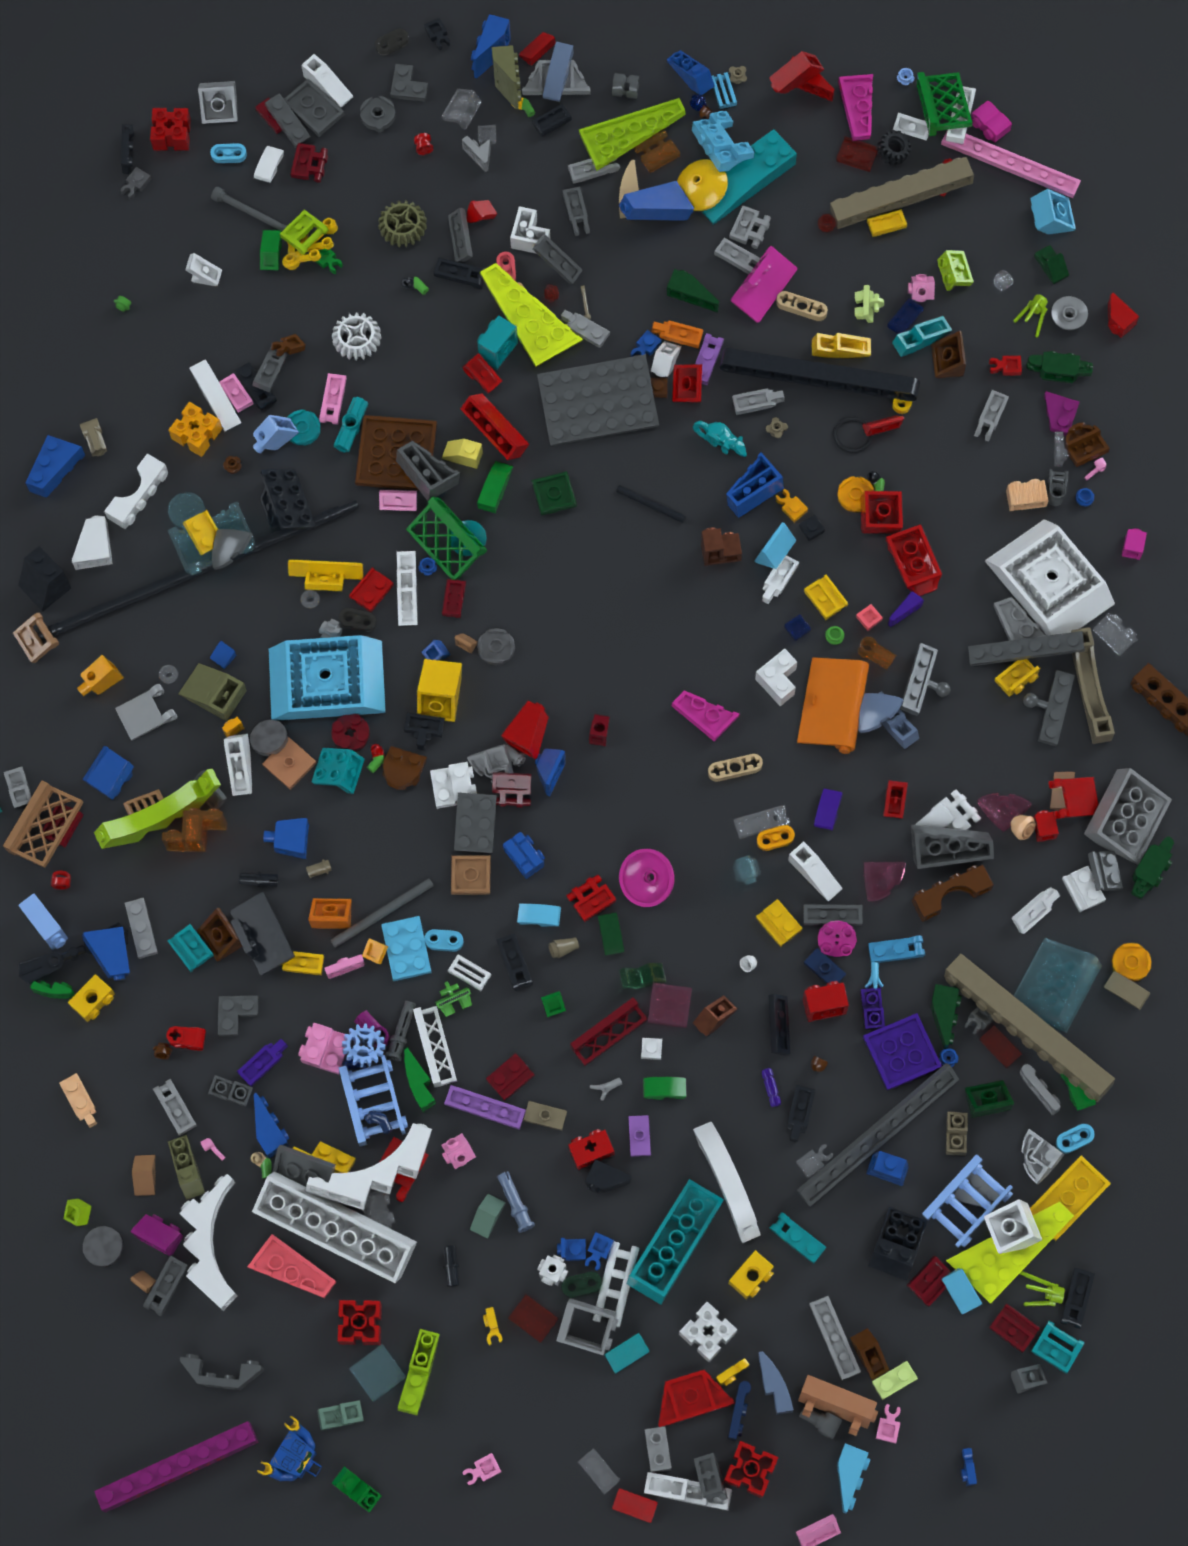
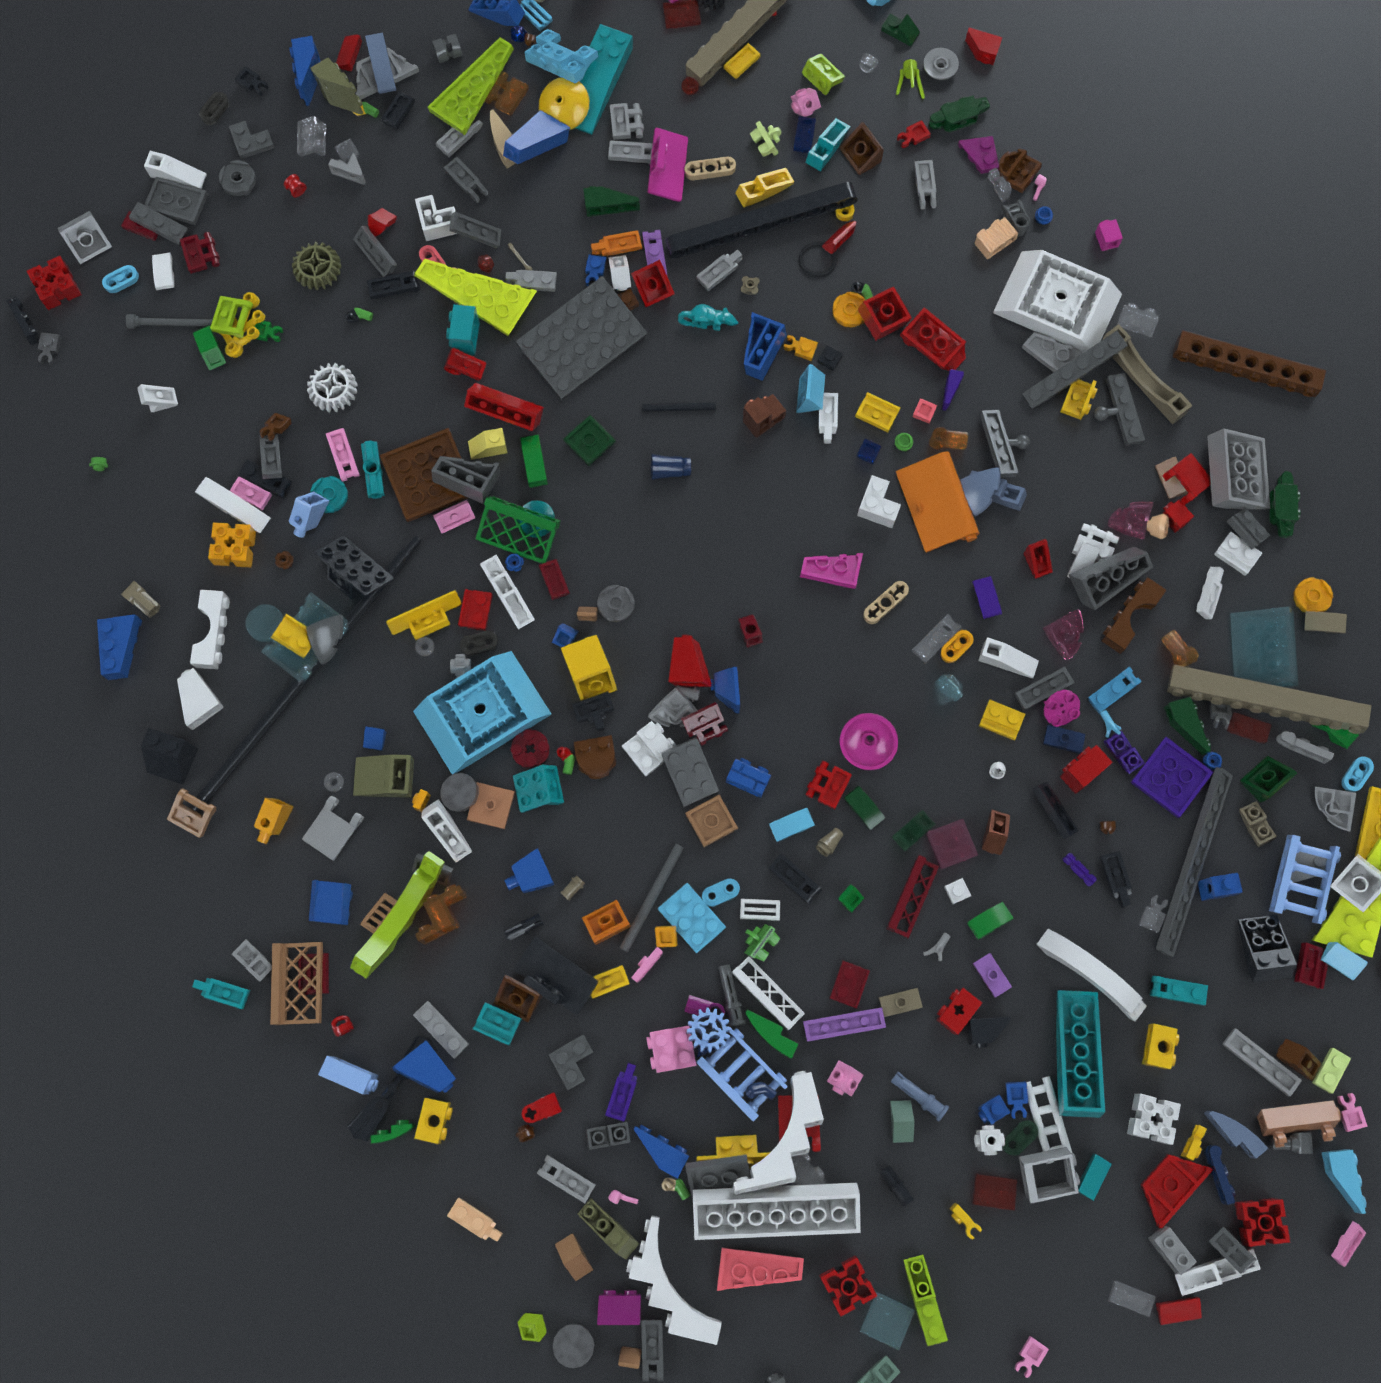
camera: 30 degrees left, 5 degrees up
(610, 551) = (669, 466): none -> dark blue plant
(975, 948) = (1181, 652): none -> clear orange piece

